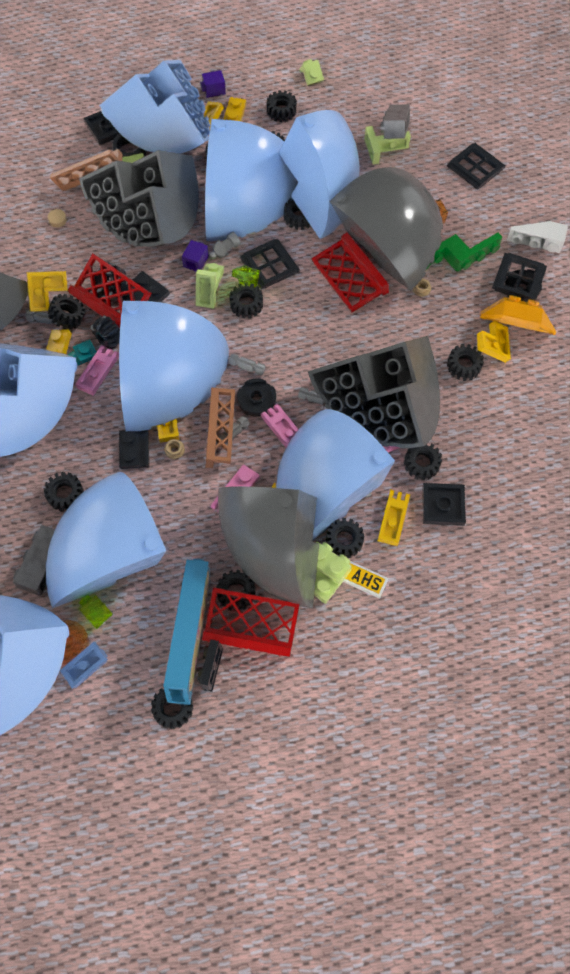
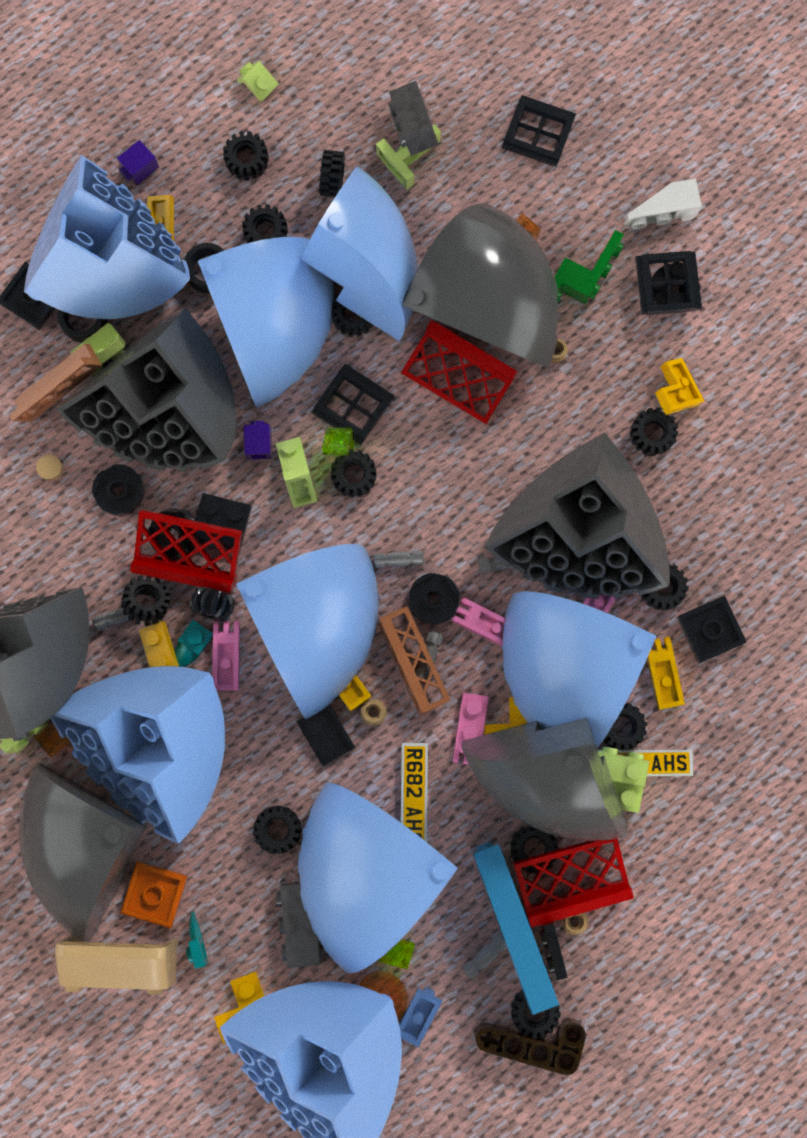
camera: 25 degrees left, 15 degrees up
(40, 284) = (97, 582): yellow plate -> none
(87, 238) = (112, 477): none -> black plate
(153, 650) = (484, 957): none -> light grey axle
(153, 727) = (528, 1044): none -> dark brown beam
(176, 508) = (414, 787): none -> tile
(221, 249) = (283, 413): light grey piece -> none
(235, 109) = (189, 199): yellow hinge -> none
(237, 664) = (578, 929): none -> tan plate
(519, 314) = (690, 339): light orange wedge -> none

